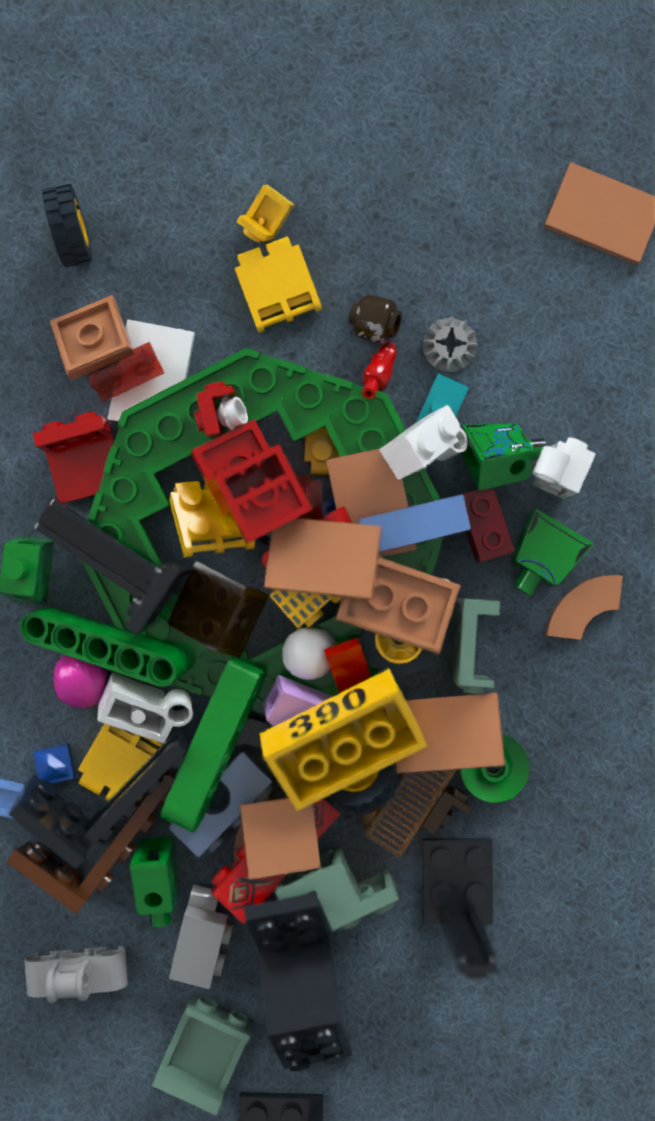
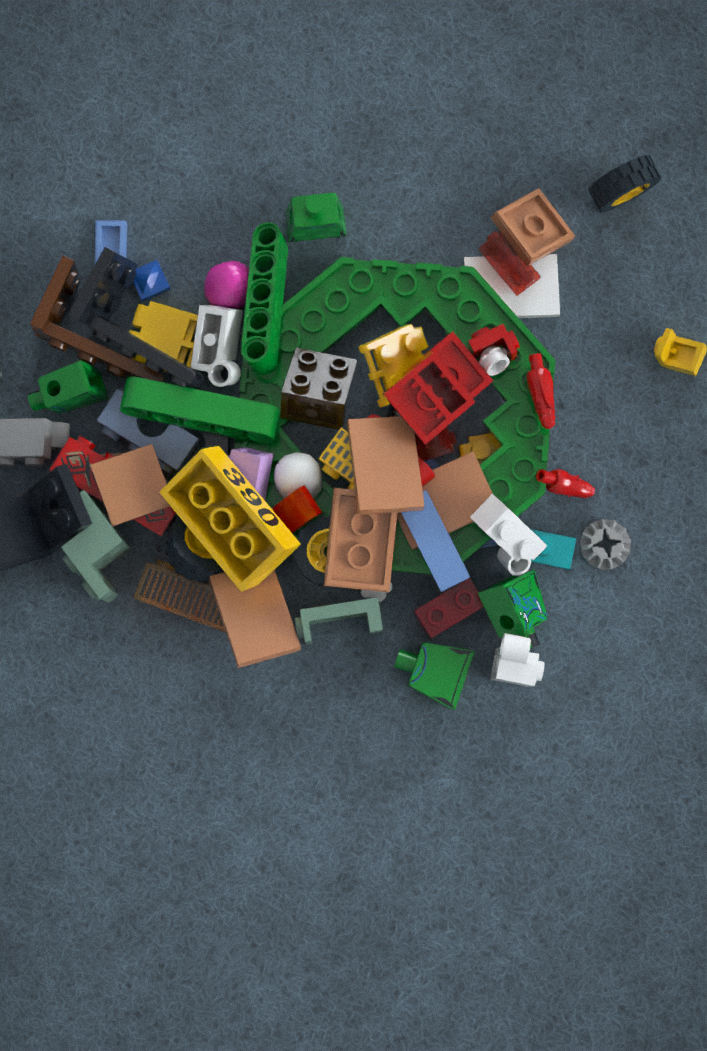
camera: 80 degrees right, 5 degrees down
(76, 454) = (426, 237): red bracket -> none
(149, 583) = (328, 323): black bracket -> none
(276, 283) = (621, 376): yellow plate -> none
(278, 370) = (541, 389): none -> red piece
(375, 319) = (610, 471): dark brown head -> none
(441, 811) = (181, 626): dark brown bracket -> none
(461, 899) = (113, 659): black bracket -> none
(504, 782) = (219, 681): green dish -> none
(582, 604) = (398, 718): nougat tile -> none

